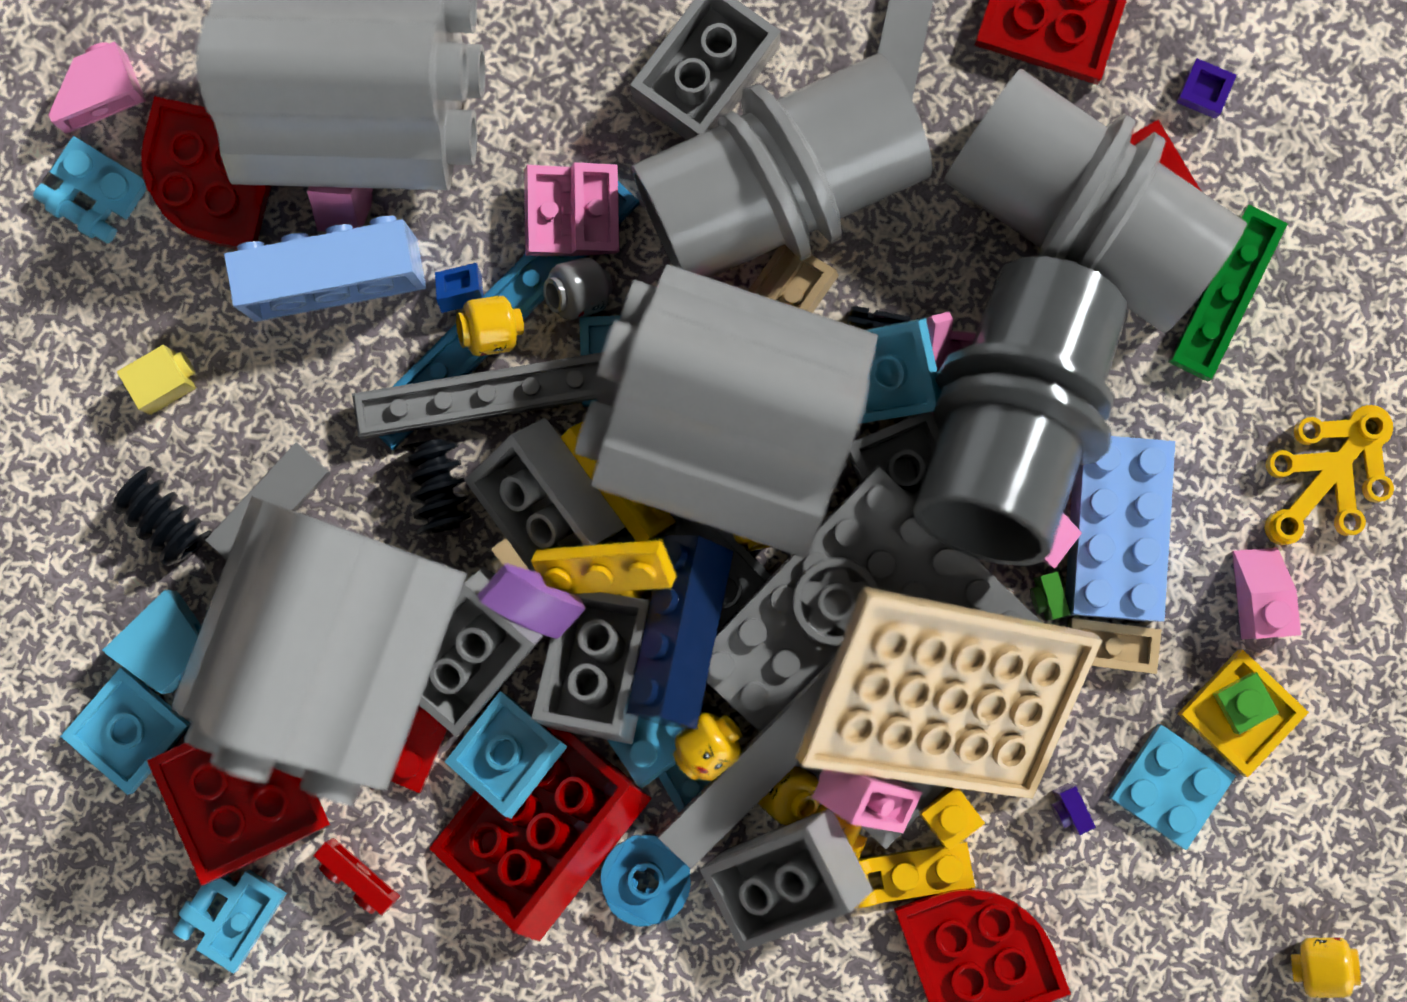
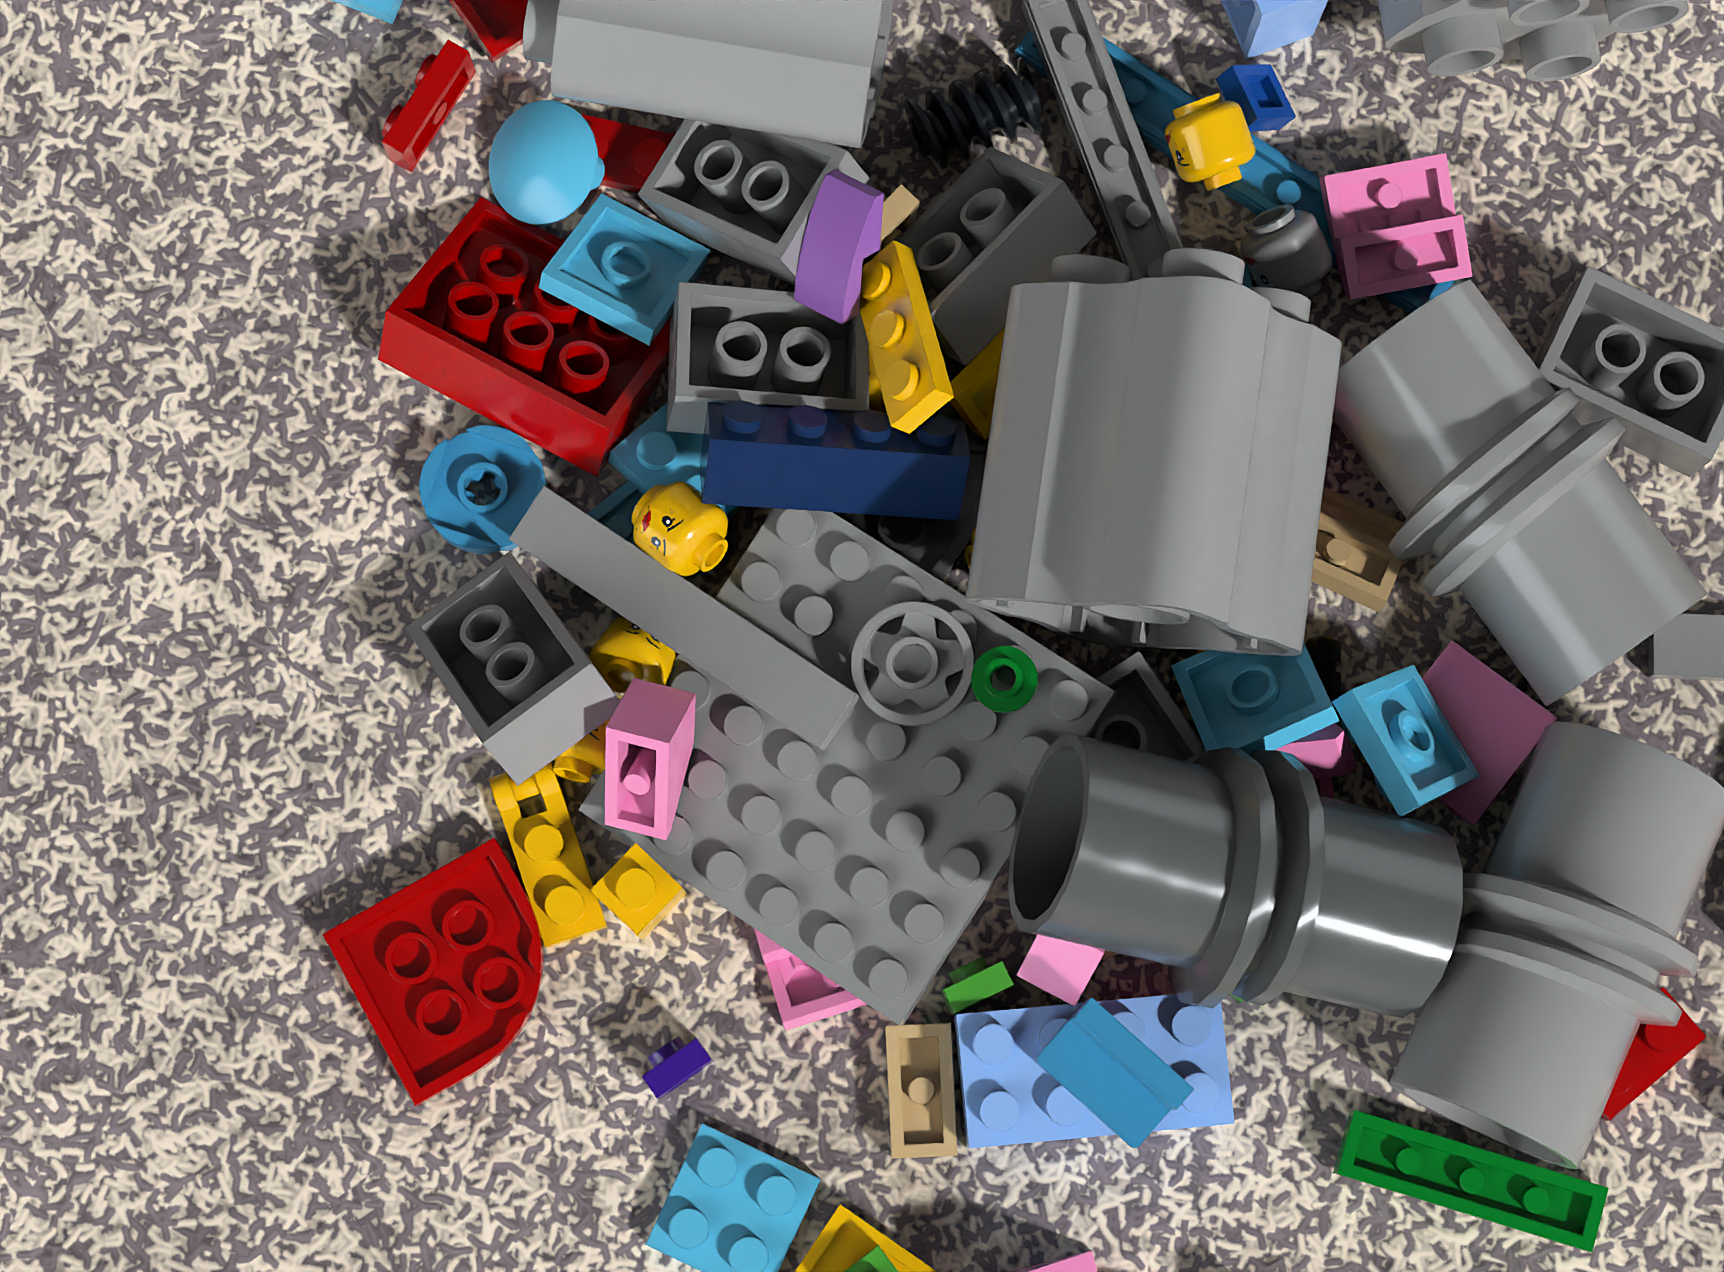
camera: 75 degrees right, 5 degrees down
(418, 801) = (544, 163): none -> medium azure dish
(848, 533) = (1022, 690): none -> green plate
(932, 236) = (1491, 721): none -> bright pink slope
(939, 276) = (1405, 739): none -> medium azure plate
(947, 696) = (807, 837): tan piece -> none
(1134, 516) = (1113, 1073): none -> dark azure panel

